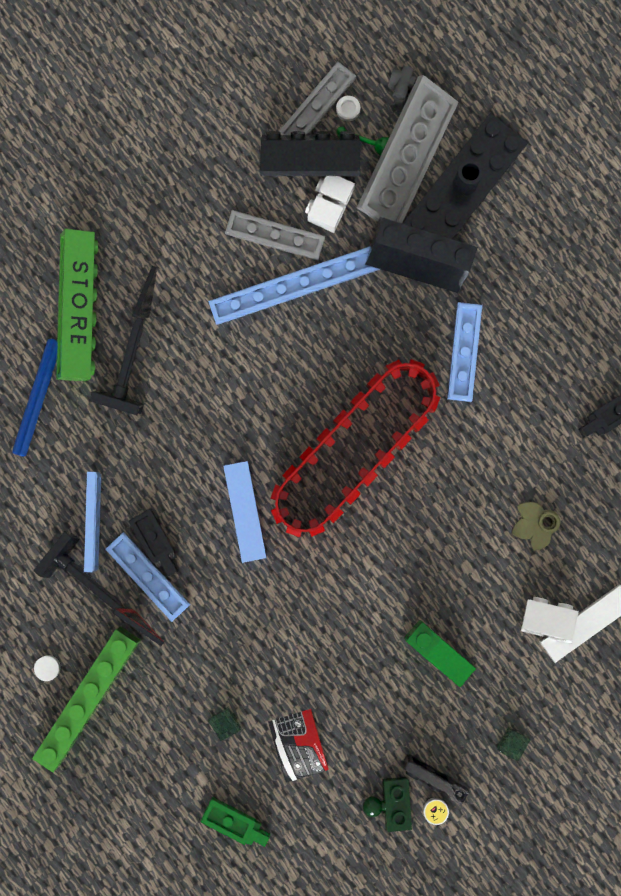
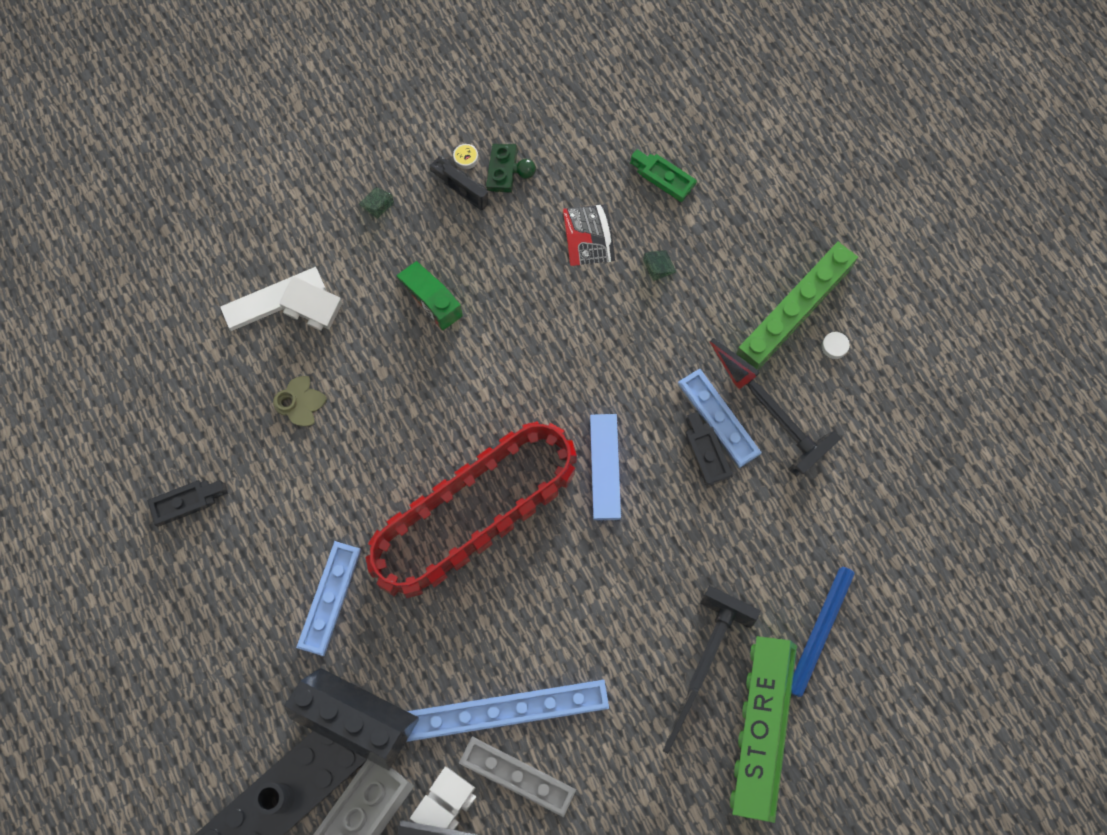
camera: 170 degrees left, 15 degrees down
(92, 523) = (771, 482): light blue tile -> none

